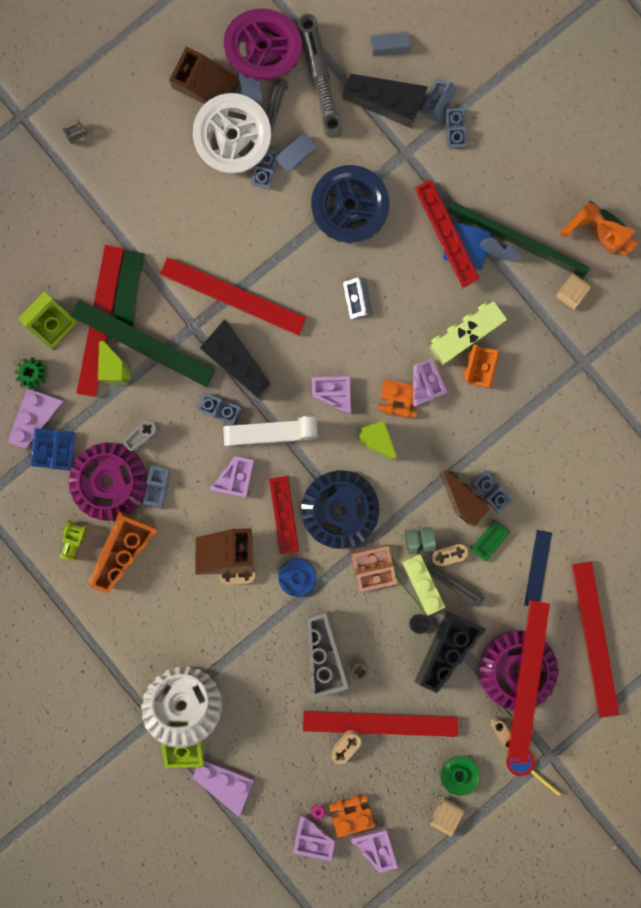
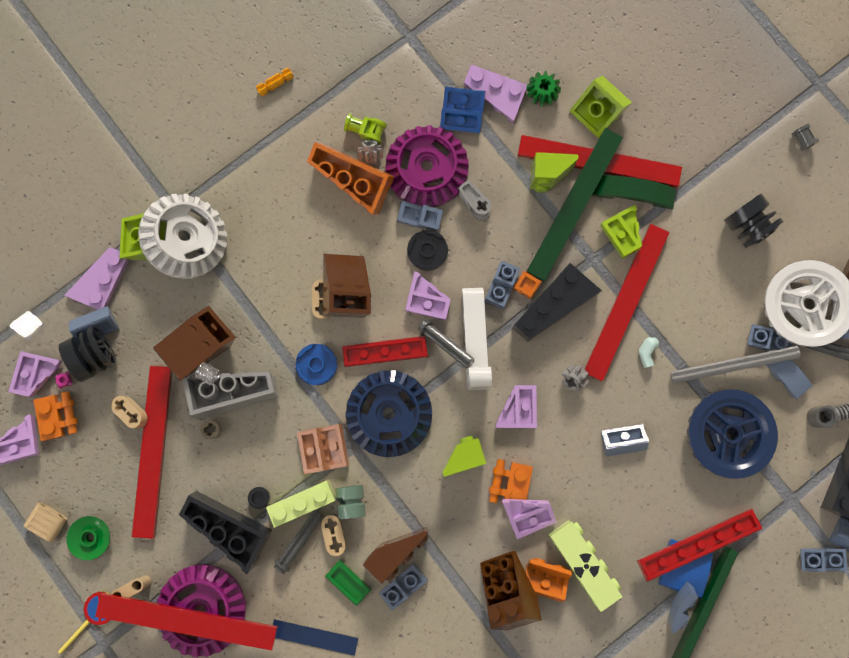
camera: 95 degrees right, 5 degrees down
(26, 629) = (274, 81): none -> light orange axle
(96, 535) = (370, 152): none -> light grey gear
(157, 181) = (753, 221): none -> black wheel
(168, 298) = (623, 231): none -> lime wing
(188, 478) = (427, 250): none -> black tile
(219, 386) = (527, 285): none -> orange tile
(266, 787) = (101, 318): none -> sand blue slope
(268, 849) = (27, 325): none -> clear slope
(276, 278) = (646, 350): none -> light aqua arm
(276, 459) = (426, 328): none -> dark grey axle
(282, 688) = (194, 342): none -> reddish brown slope
(288, 200) = (735, 364): none -> light grey axle
(297, 791) = (87, 354): none -> black wheel
(303, 342) = (575, 377): none -> light grey gear
(310, 674) = (207, 373): none -> clear hose
(493, 399) = (509, 593): none -> reddish brown slope

